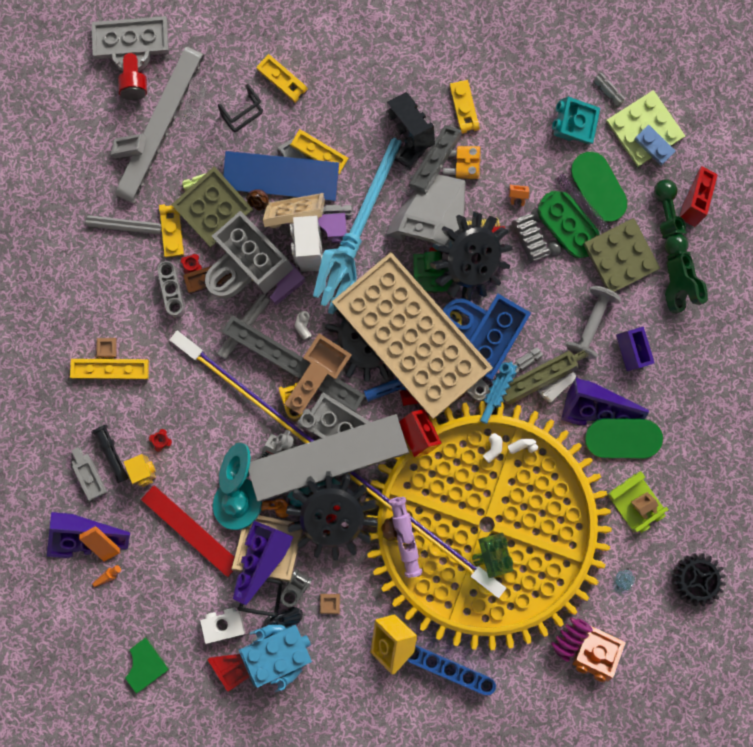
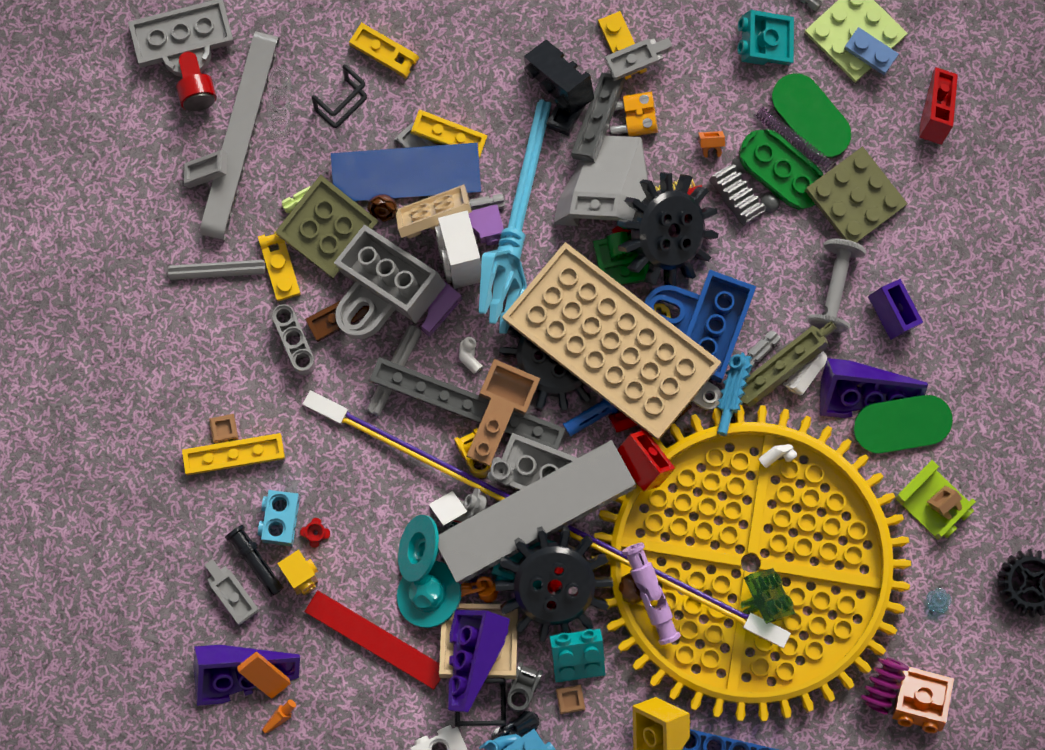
camera: 10 degrees left, 5 degrees down
(141, 426) = (285, 518): none -> medium azure brick
(191, 259) = (305, 301): red plate -> none
(263, 440) = (448, 508): none -> white sticker
(340, 572) = (578, 655): none -> teal plate
(473, 118) = (636, 57): none -> light grey hinge
(496, 447) = (744, 464): white arm -> none
(680, 263) = (931, 193): dark green piece -> none

